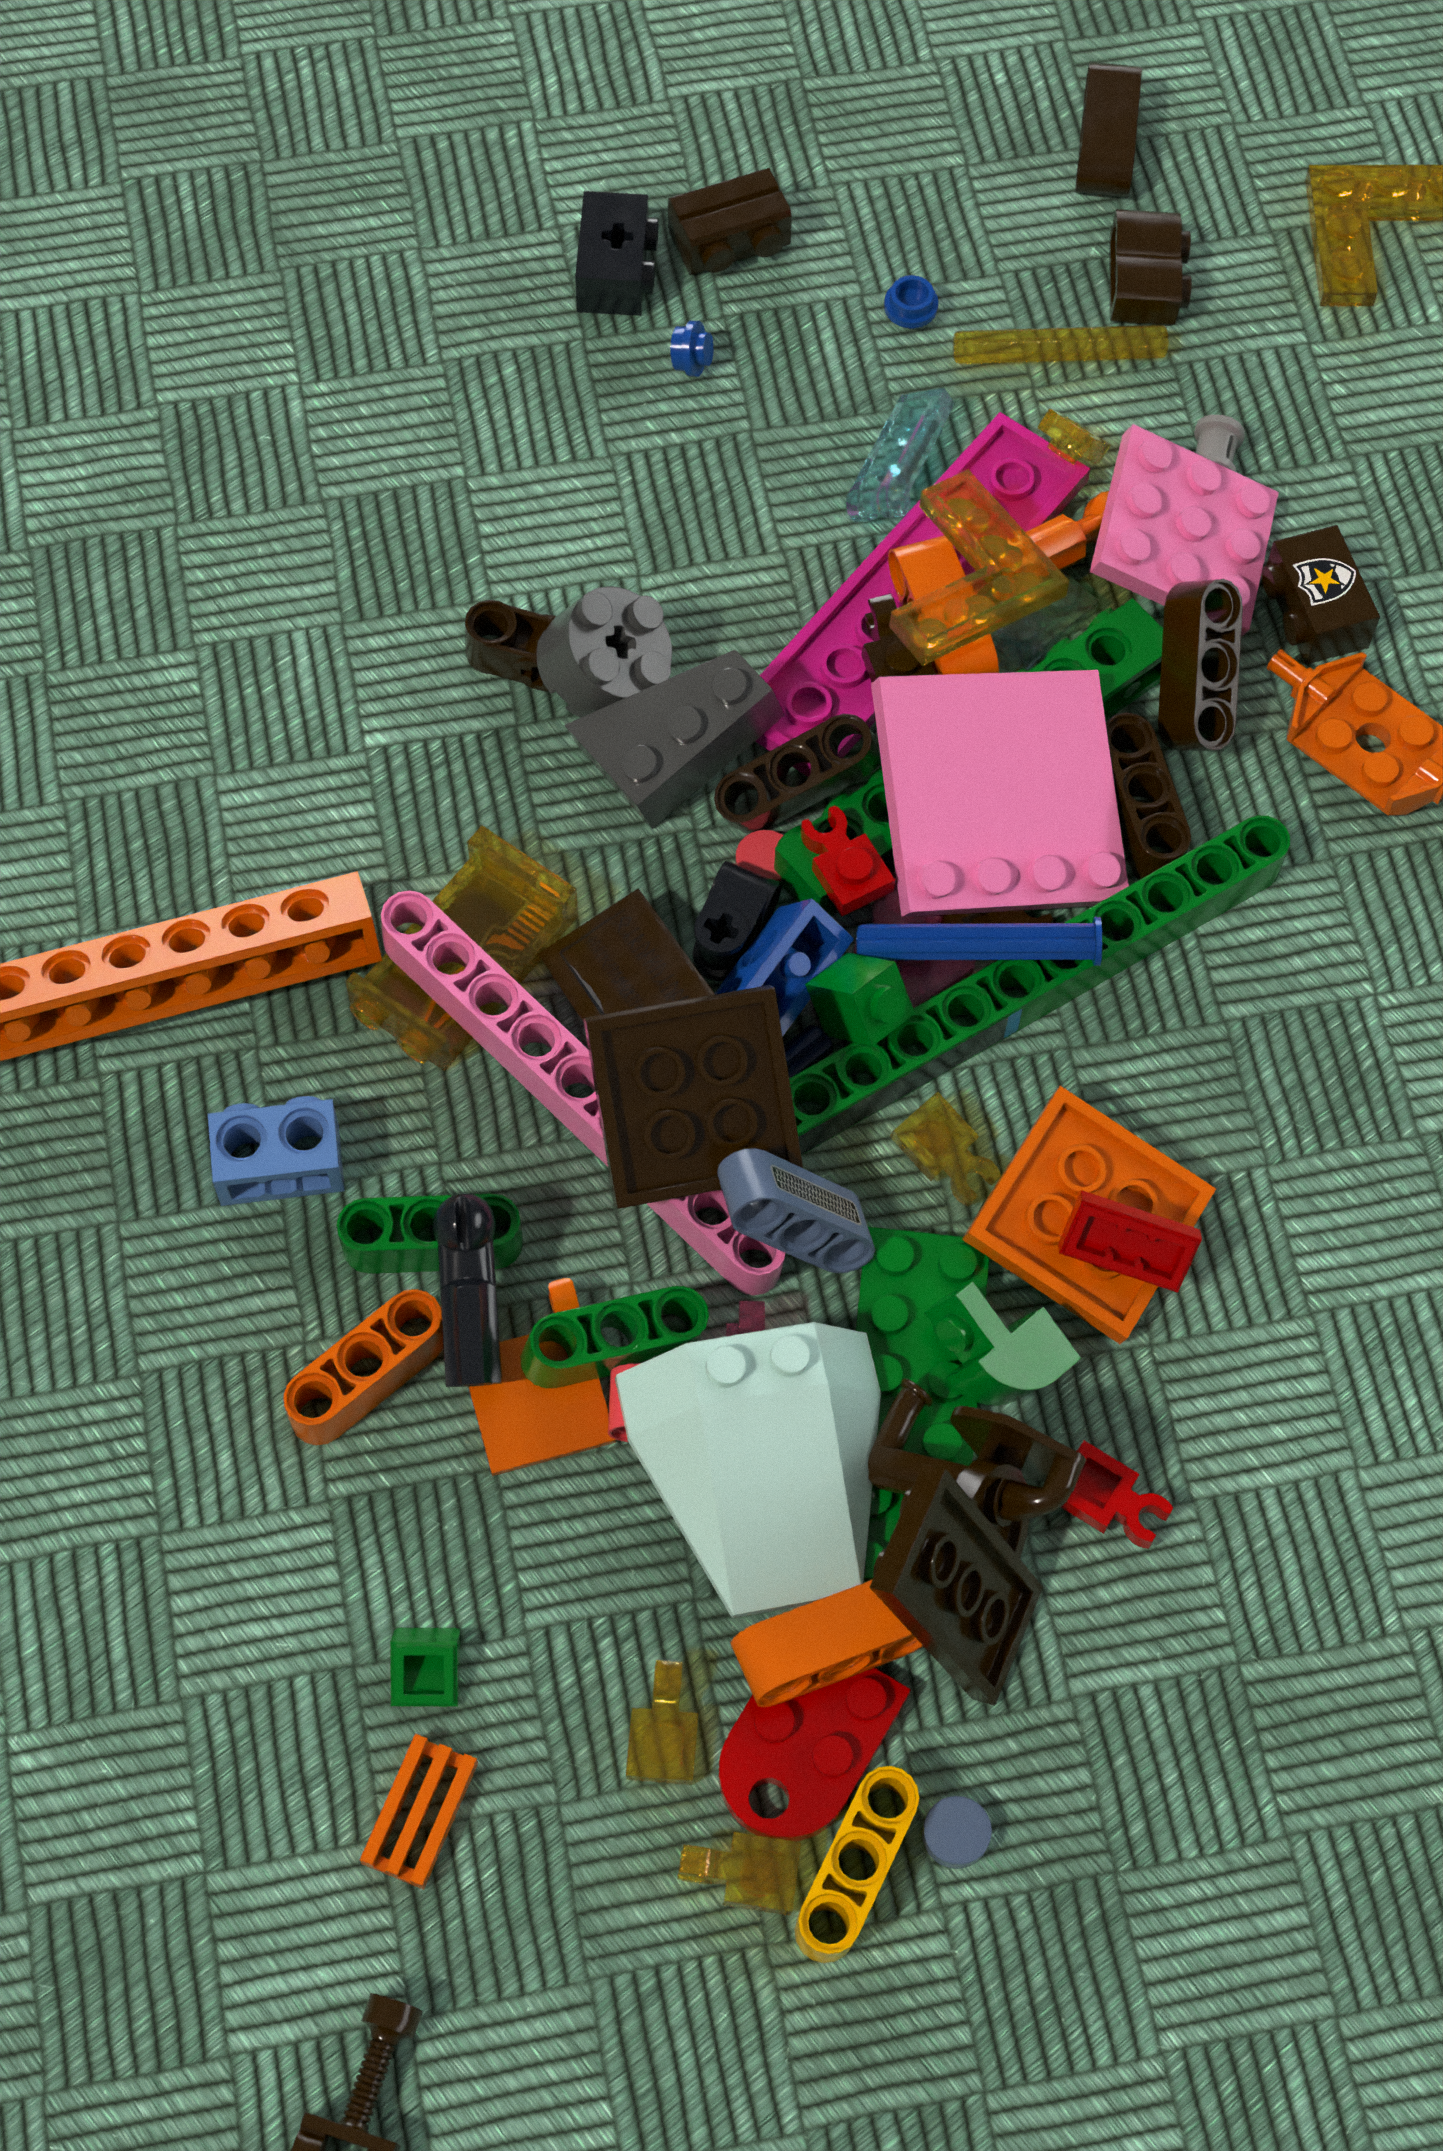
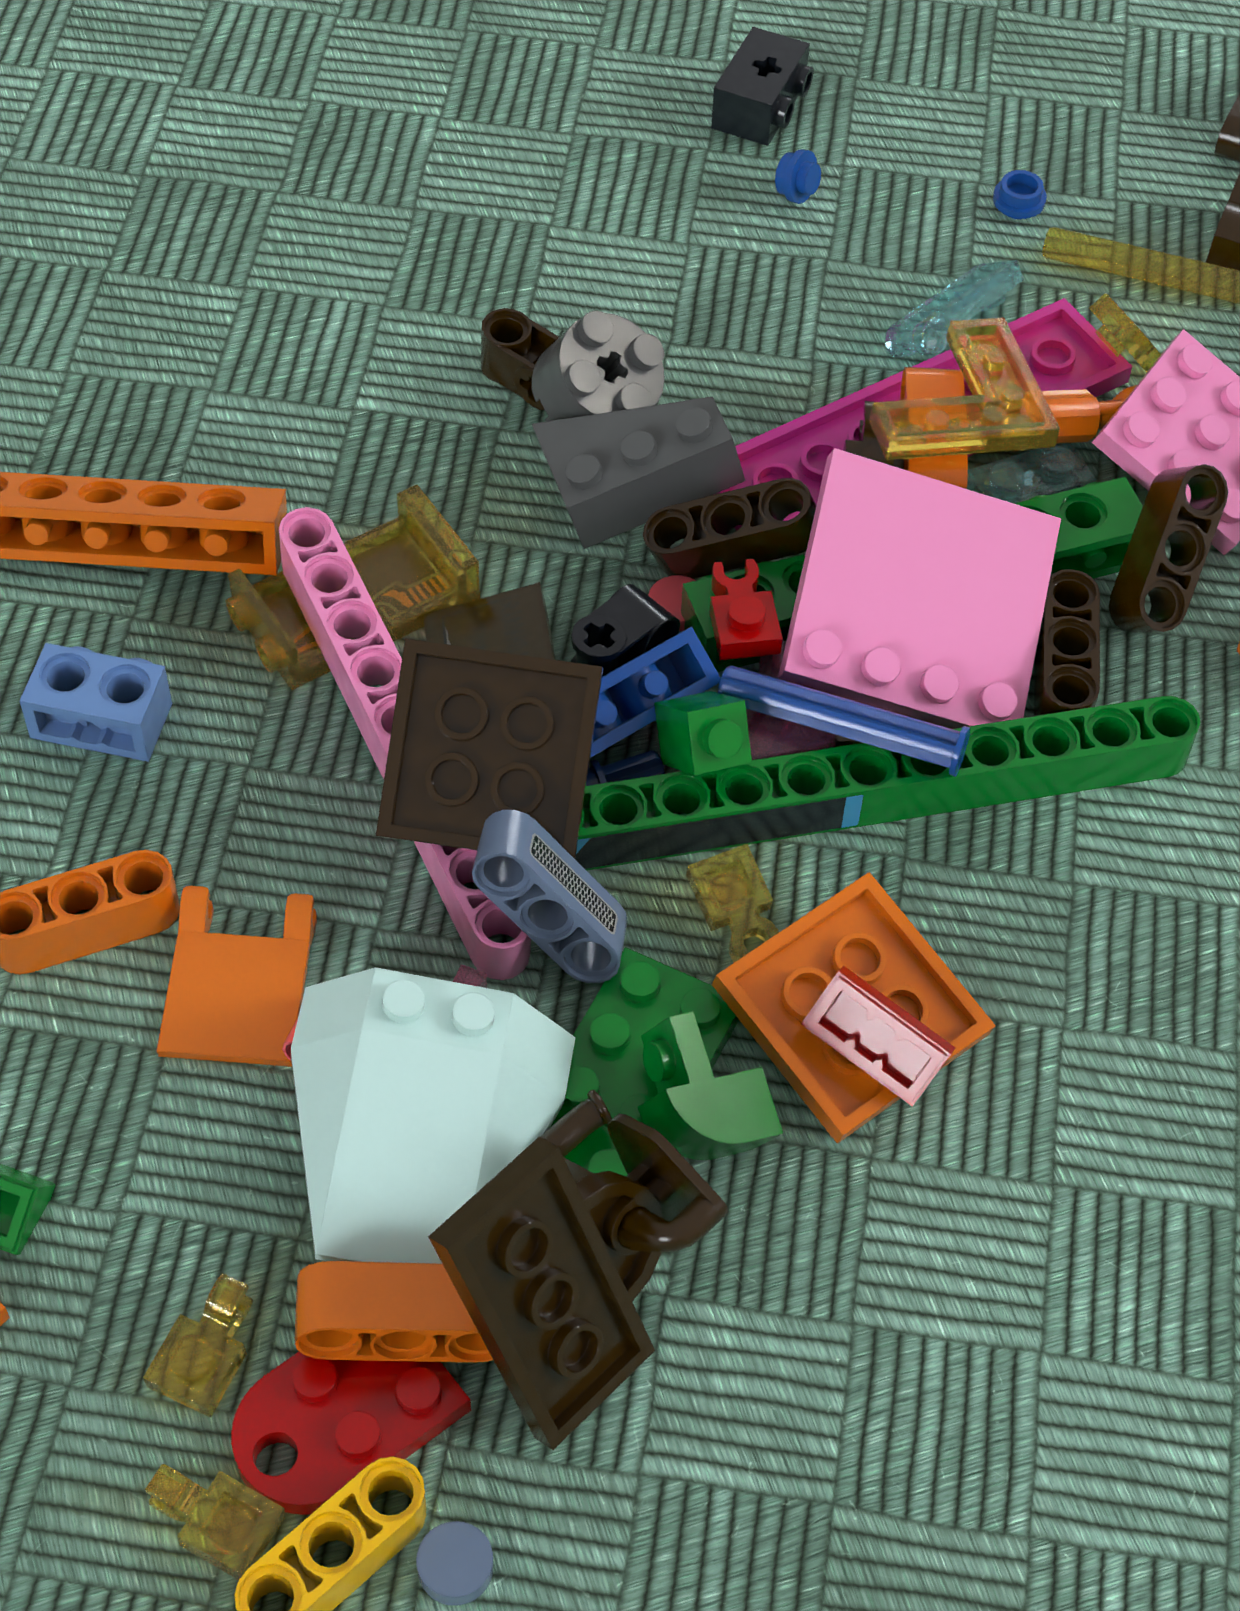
camera: 20 degrees right, 10 degrees down
(402, 1220) = (182, 795): green beam -> none
(468, 1291) = (202, 870): black piece -> none
(592, 1356) = (301, 937): green beam -> none
(730, 222) = (878, 89): dark brown brick -> none
(1106, 1495) = (756, 1274): red plate -> none

